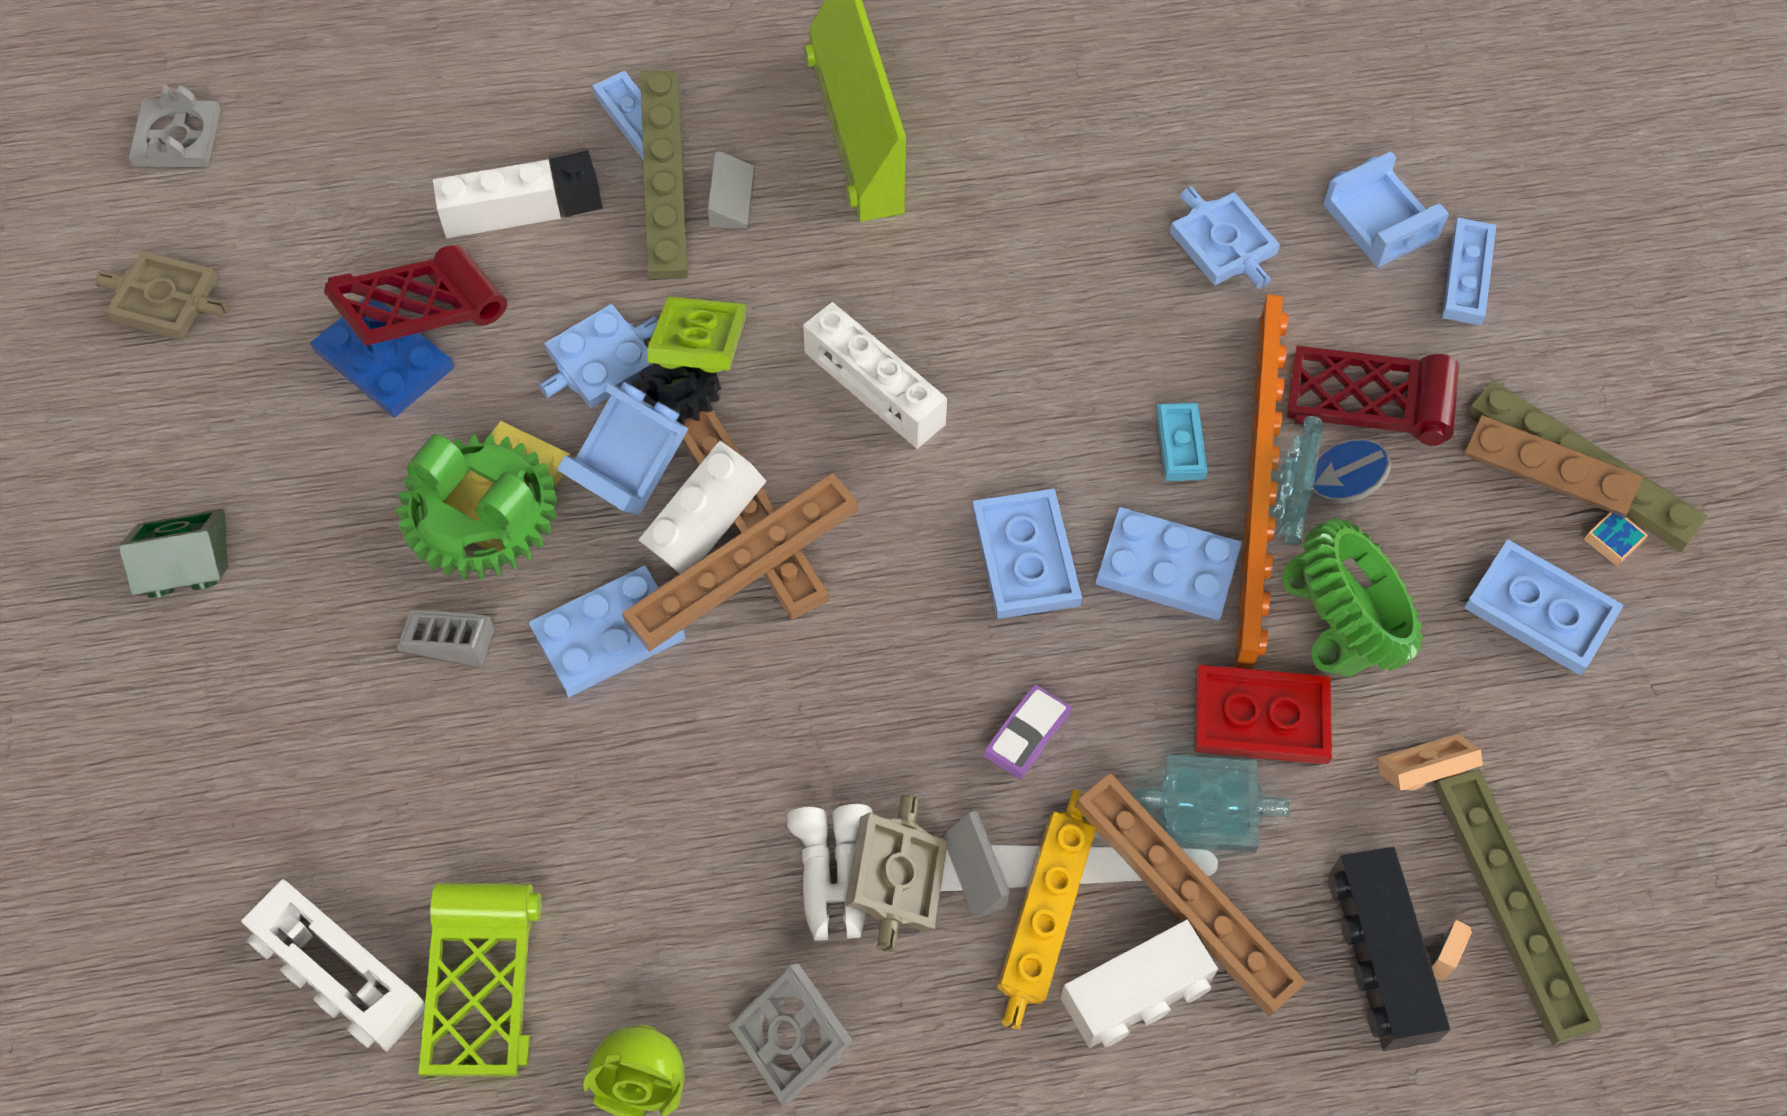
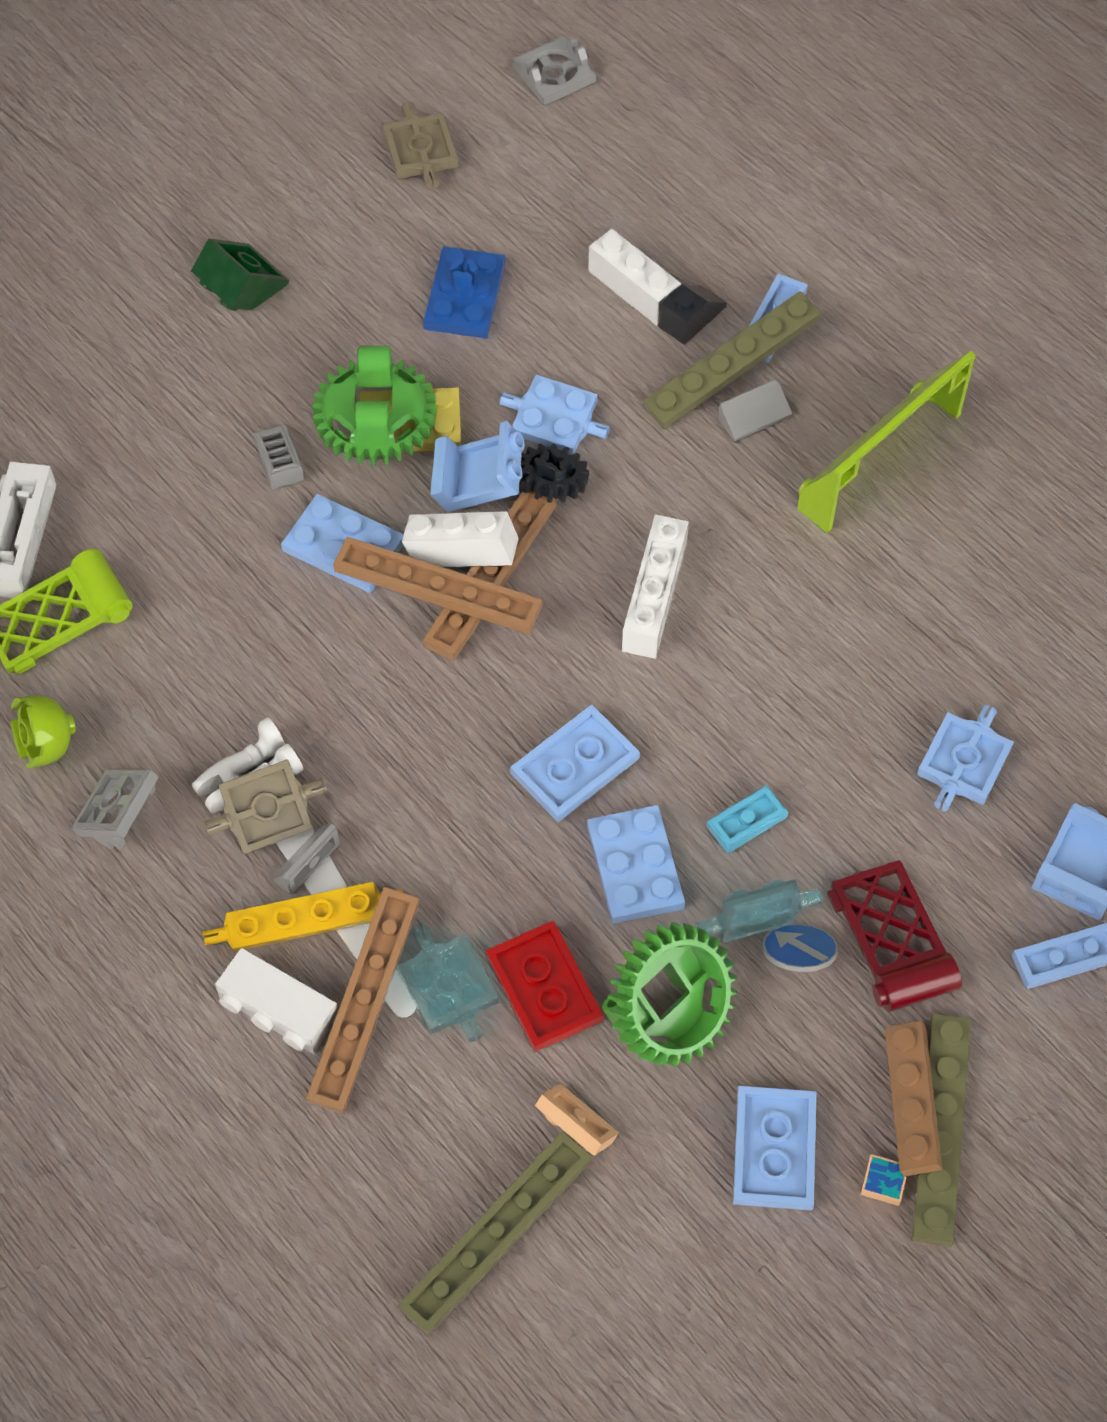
camera: 60 degrees right, 0 degrees up
(456, 281) = (550, 295): dark red piece -> none
(697, 334) = (604, 456): lime plate -> none
(1027, 731) = (430, 835): slope -> none
(1261, 491) = (804, 868): orange plate -> none
(1388, 949) = (403, 1154): black brick -> none
(1450, 950) = (426, 1198): light nougat tile -> none

